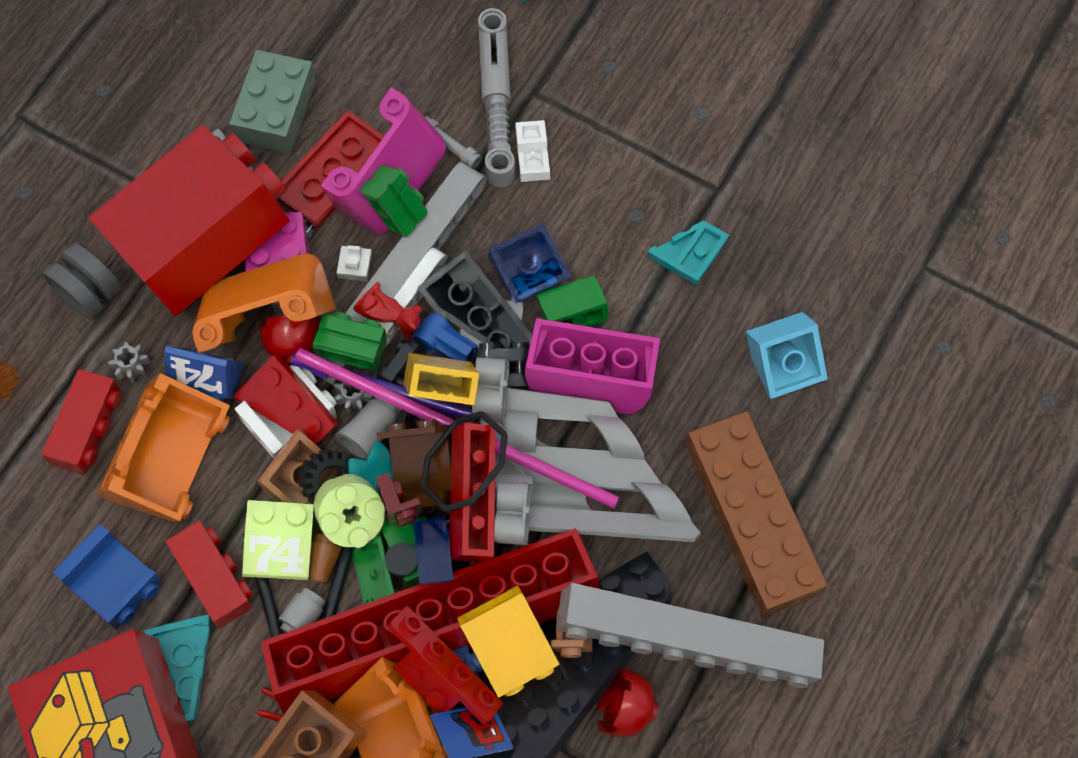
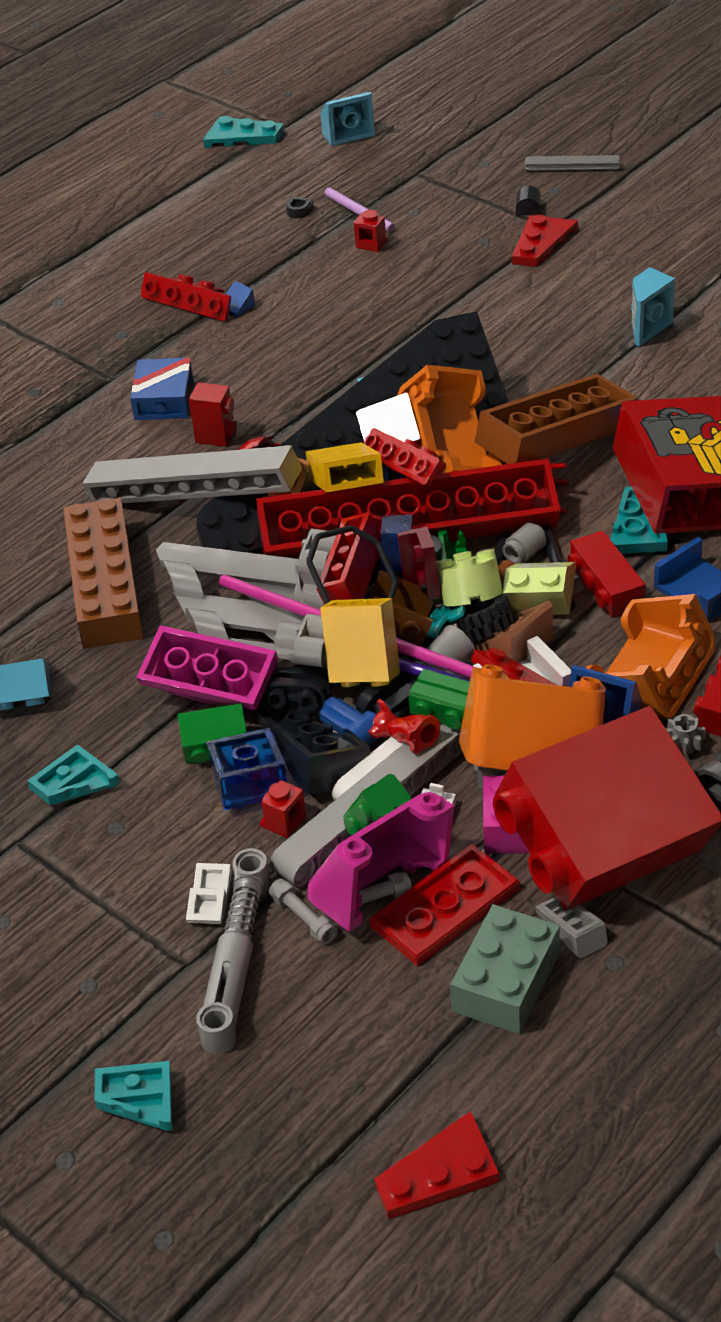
camera: 165 degrees left, 25 degrees down
(486, 230) = (278, 804): none -> red brick

